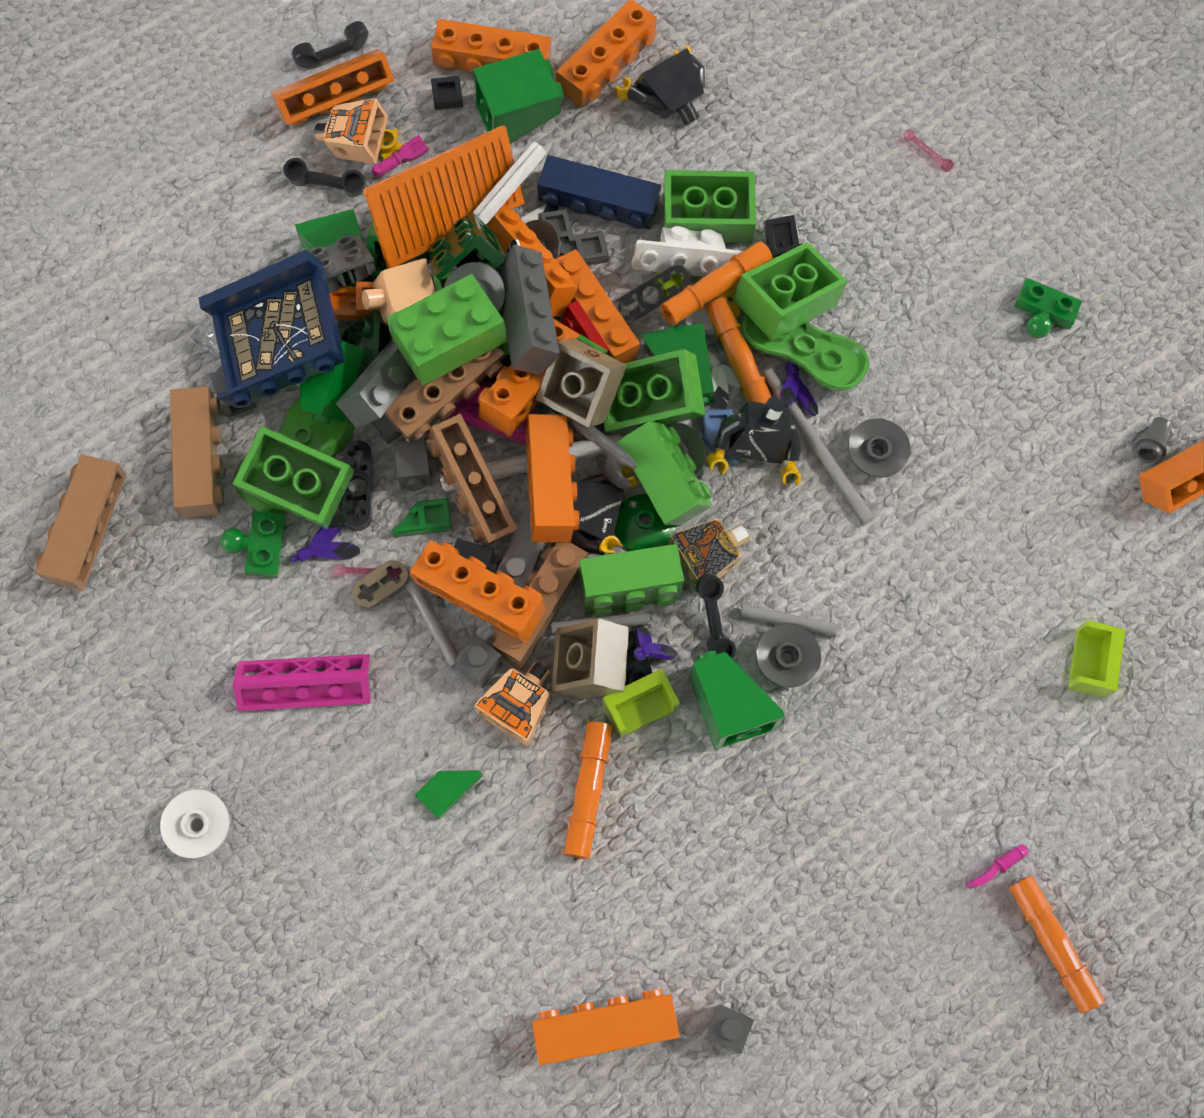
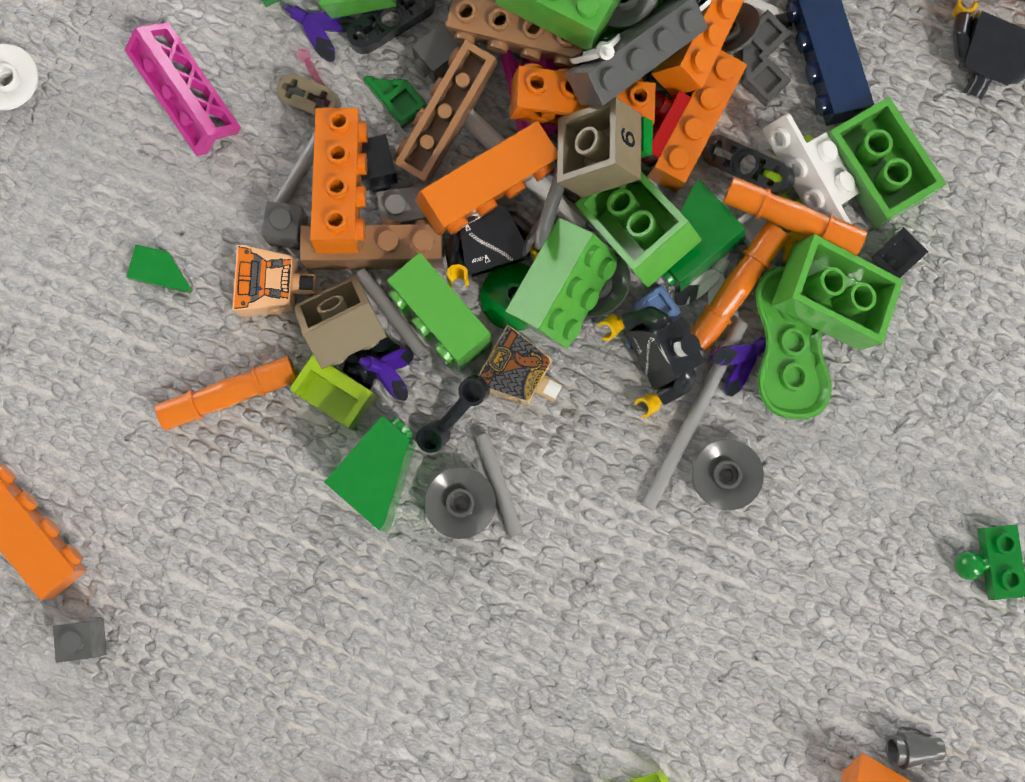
camera: 65 degrees right, 10 degrees up
(517, 327) = (603, 50): none -> white piece

